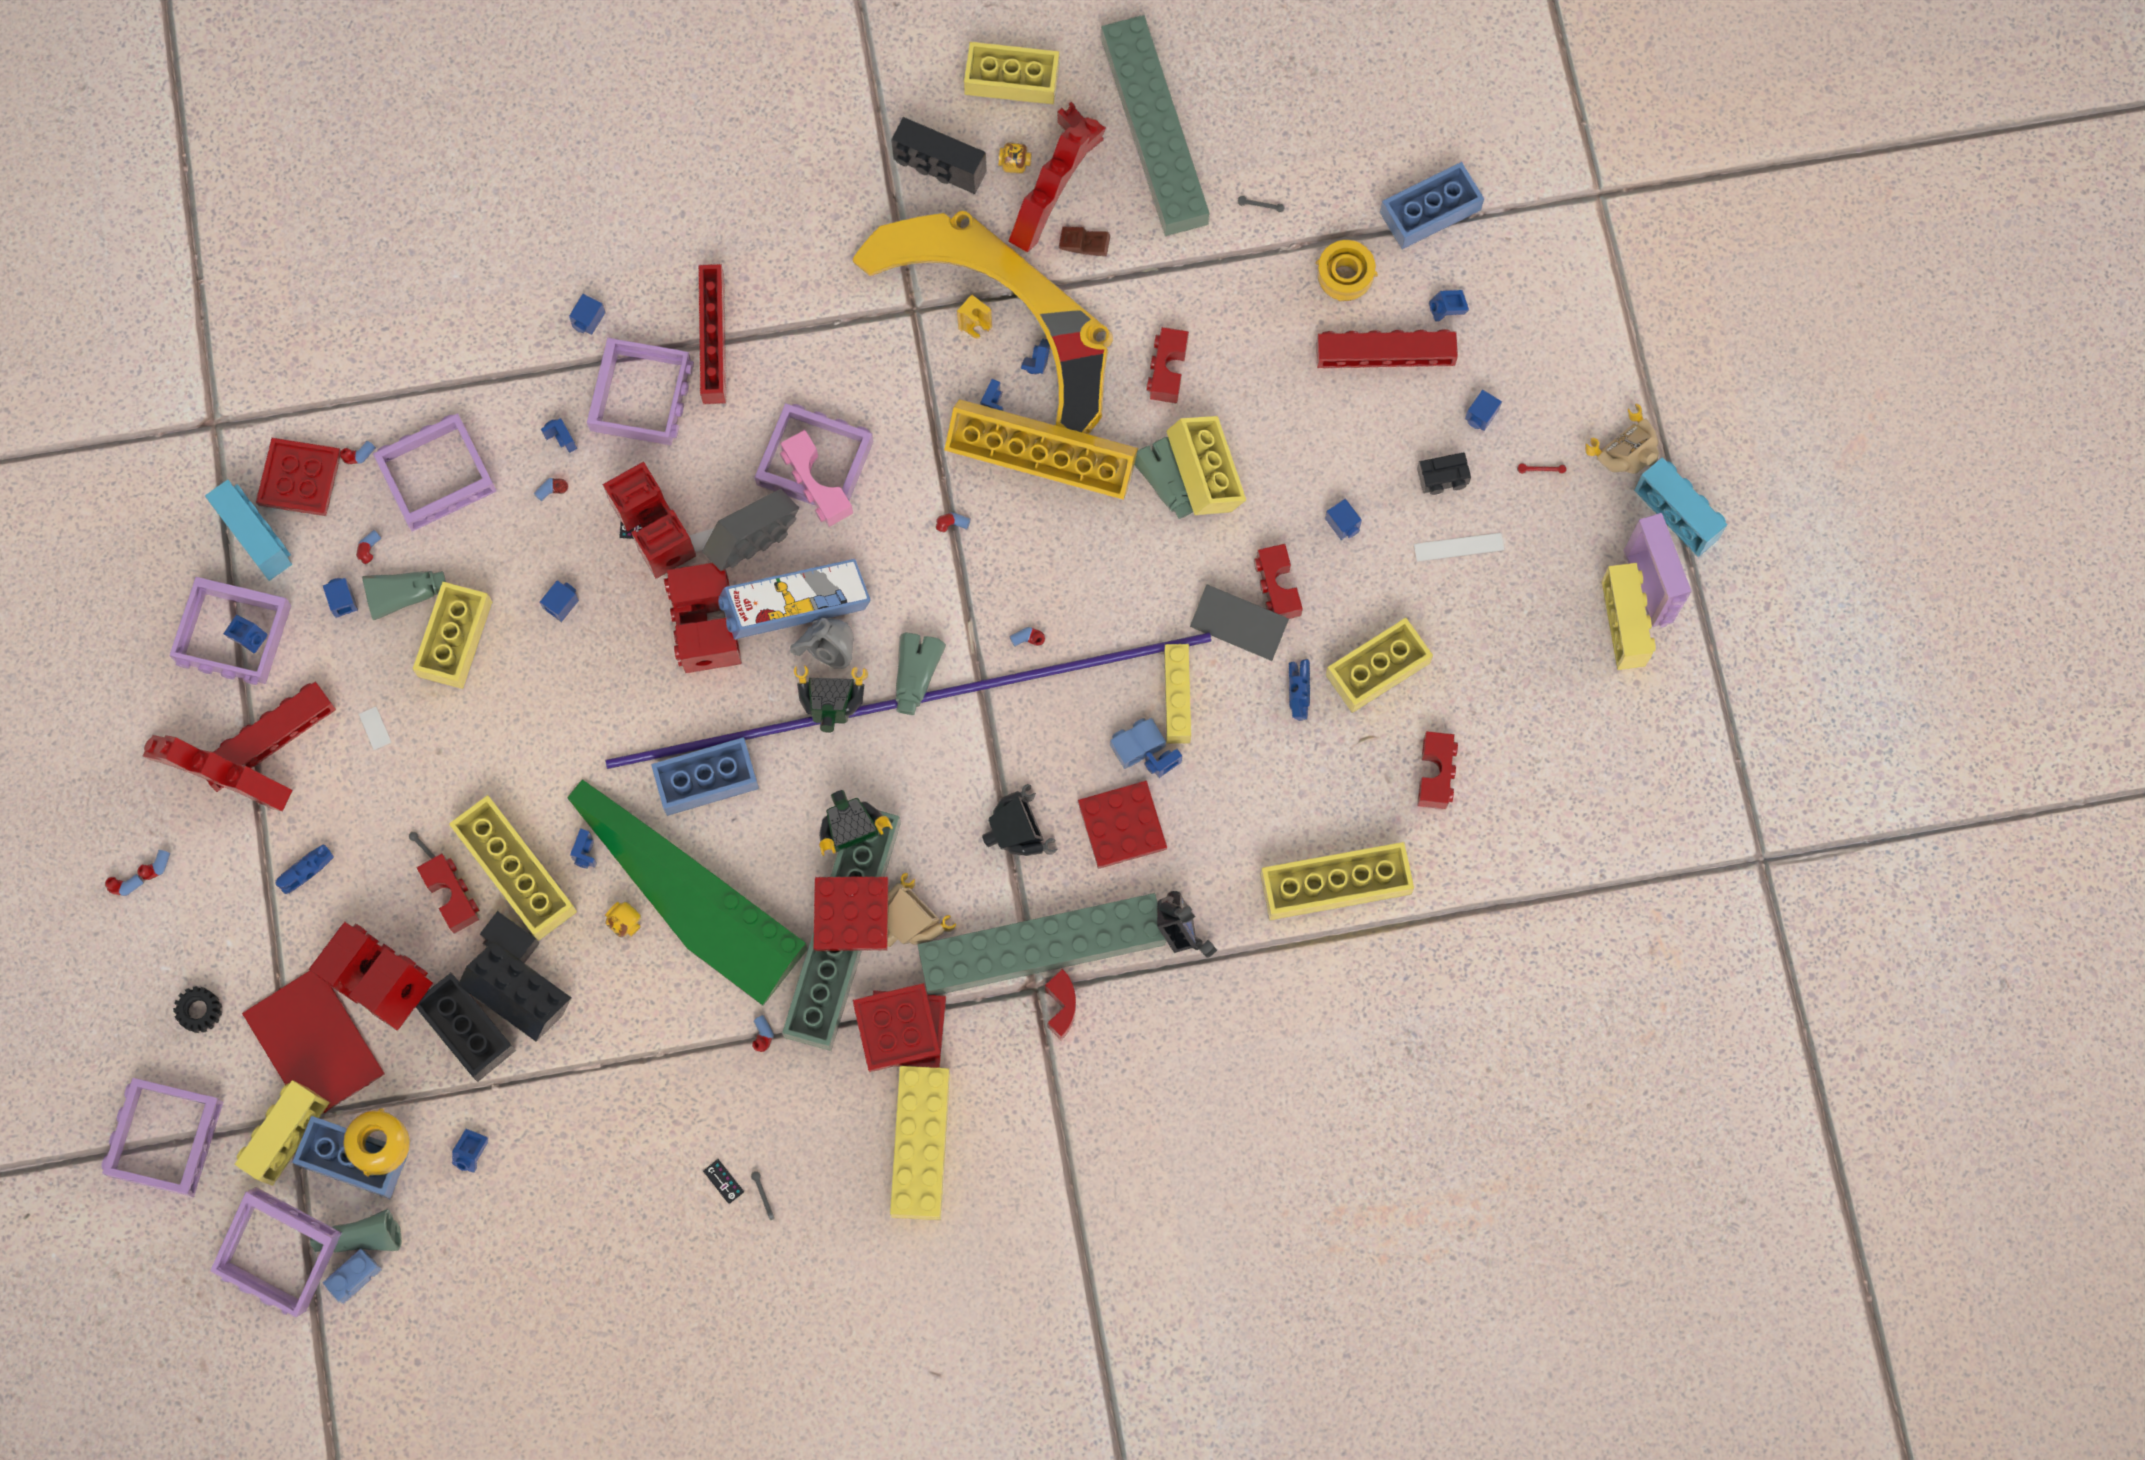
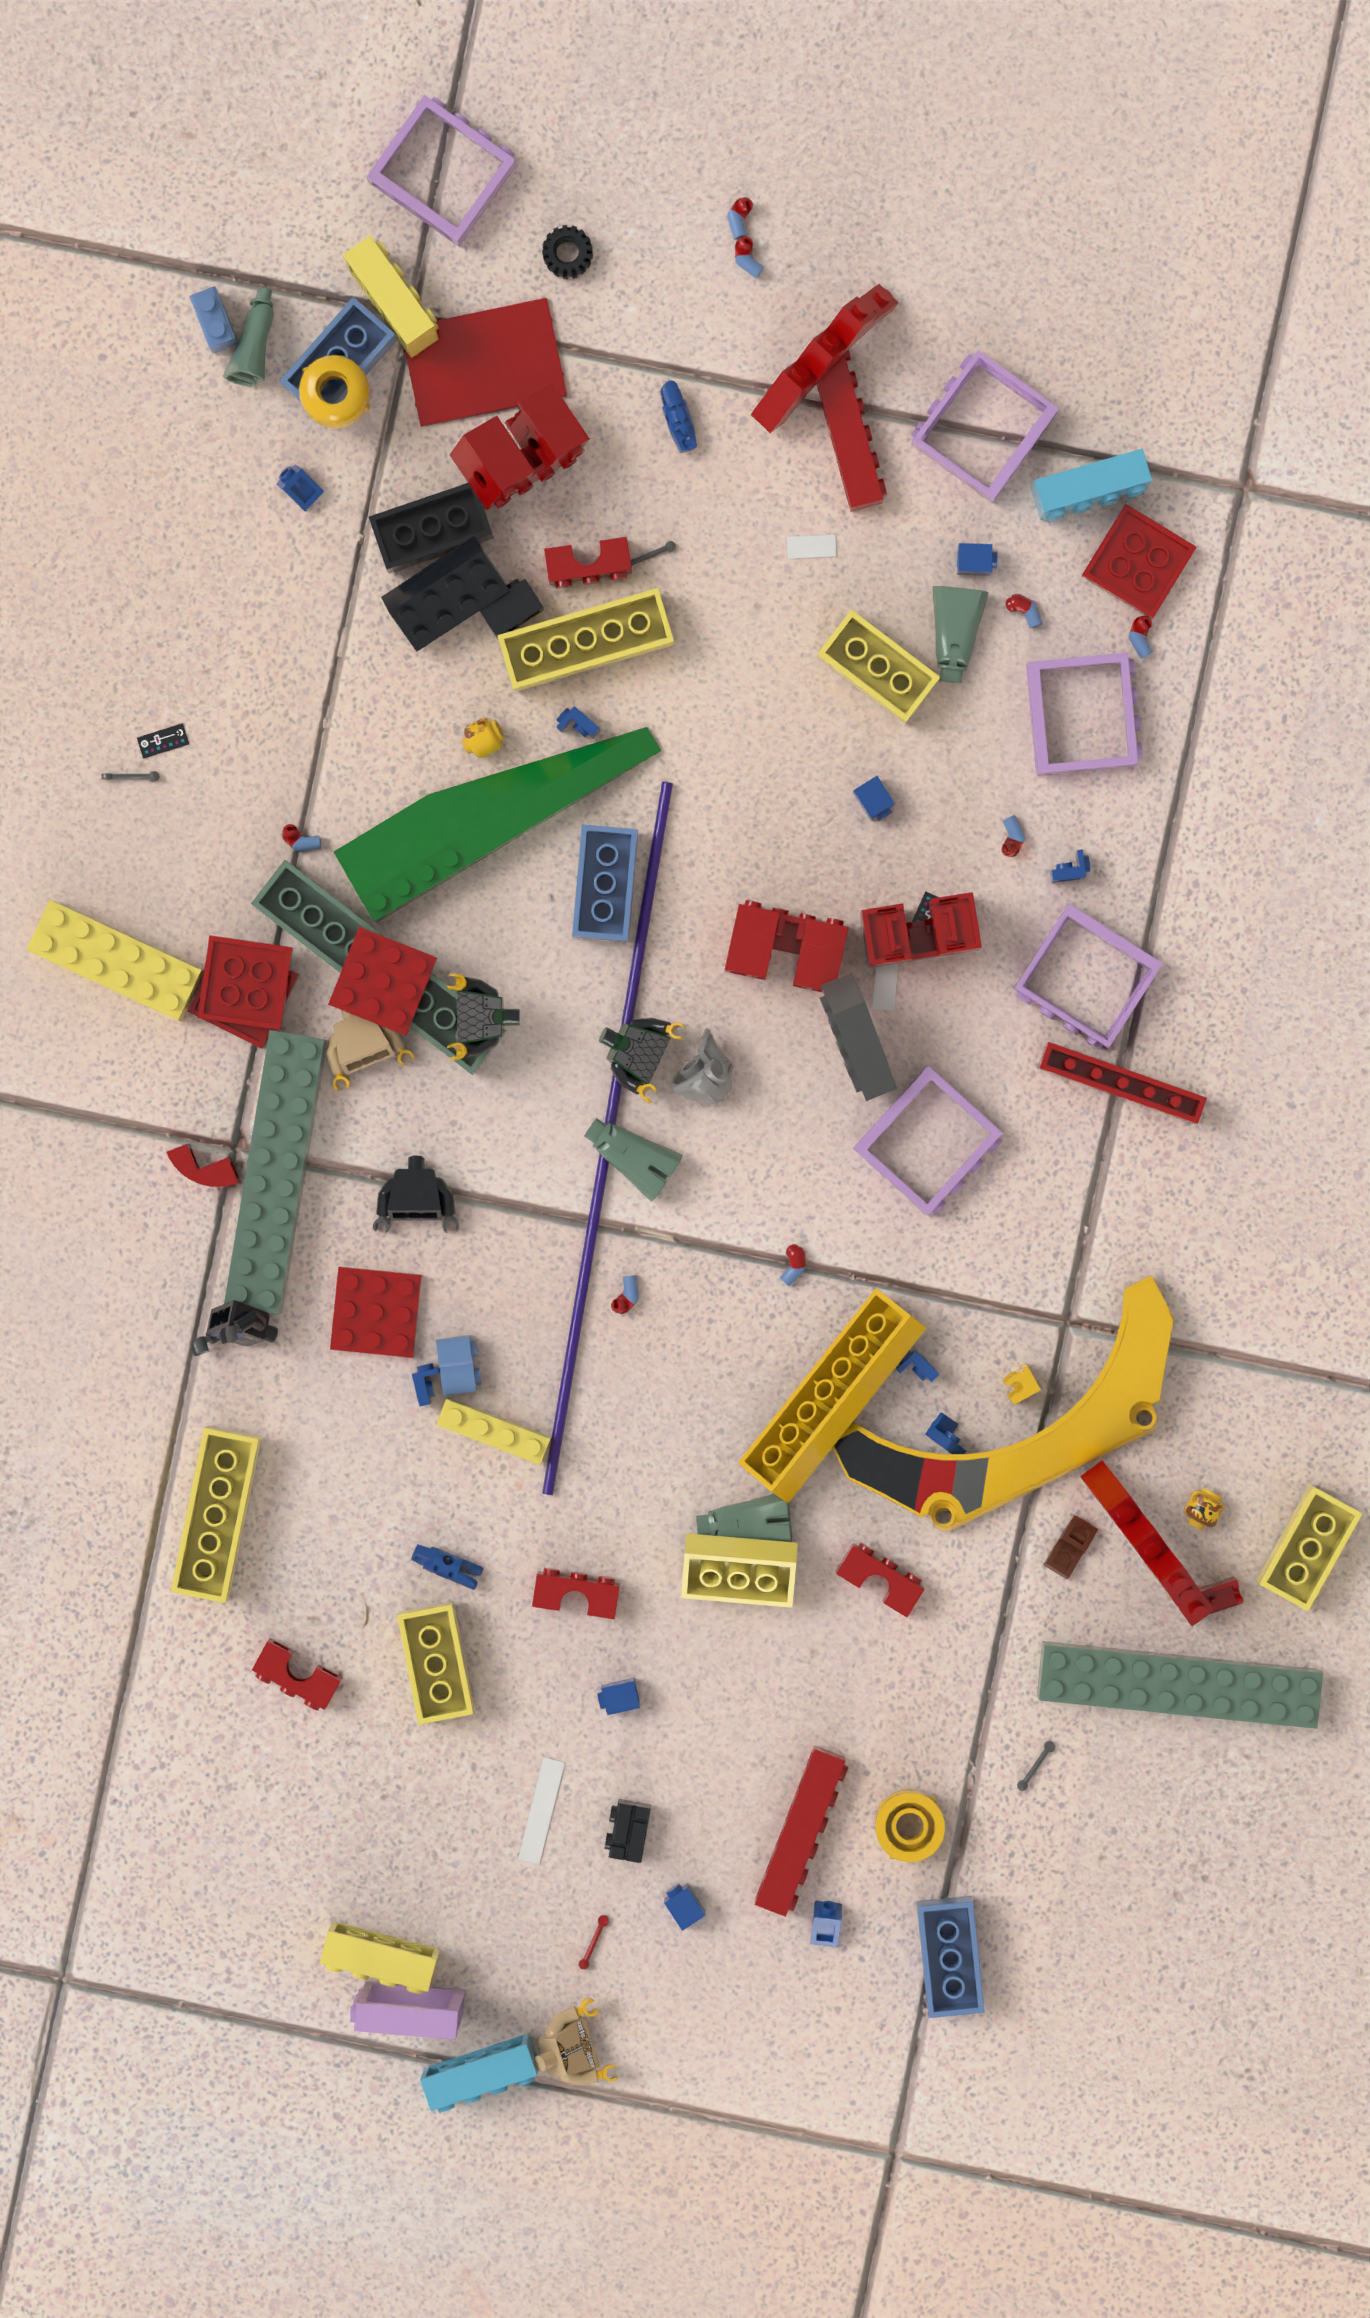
camera: 115 degrees right, 15 degrees up
(245, 633) = (967, 440): blue bracket -> none
(292, 1217) = (290, 277): lavender window -> none
(587, 314) = (1204, 950): blue brick -> none
(793, 599) = (763, 1054): brick -> none
(830, 501) = (930, 1126): bright pink arch -> none
(938, 155) = (1237, 1421): black brick -> none
(1239, 622) = (548, 1532): dark grey sticker -> none

